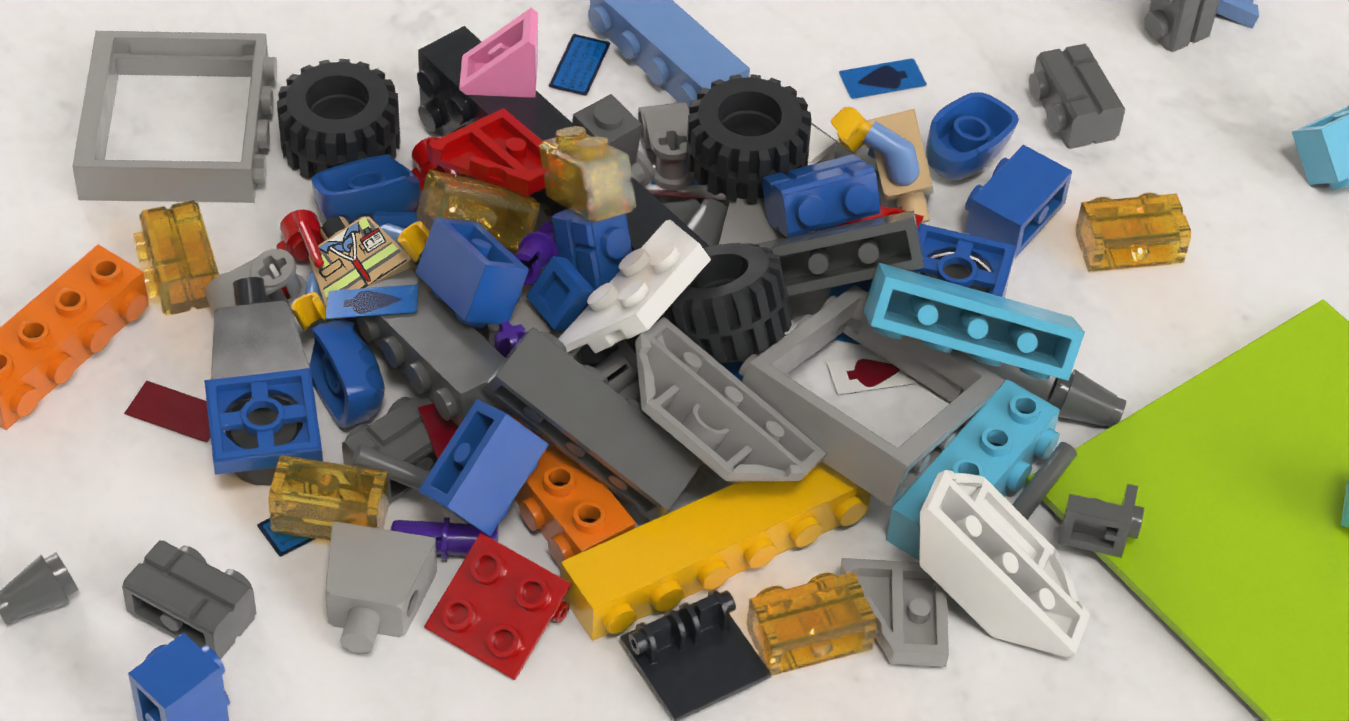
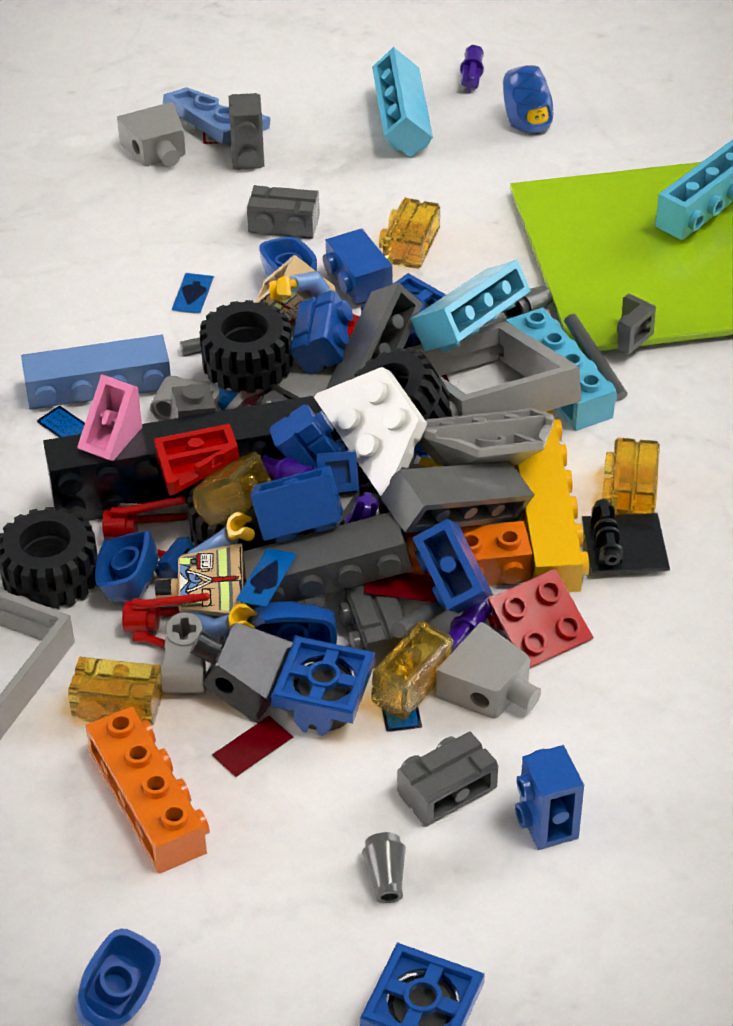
camera: 60 degrees left, 5 degrees down
(587, 174) = (266, 407): clear yellow brick -> none
(907, 610) = (639, 424): light grey wing -> none
(999, 566) = (648, 378): white wedge -> none

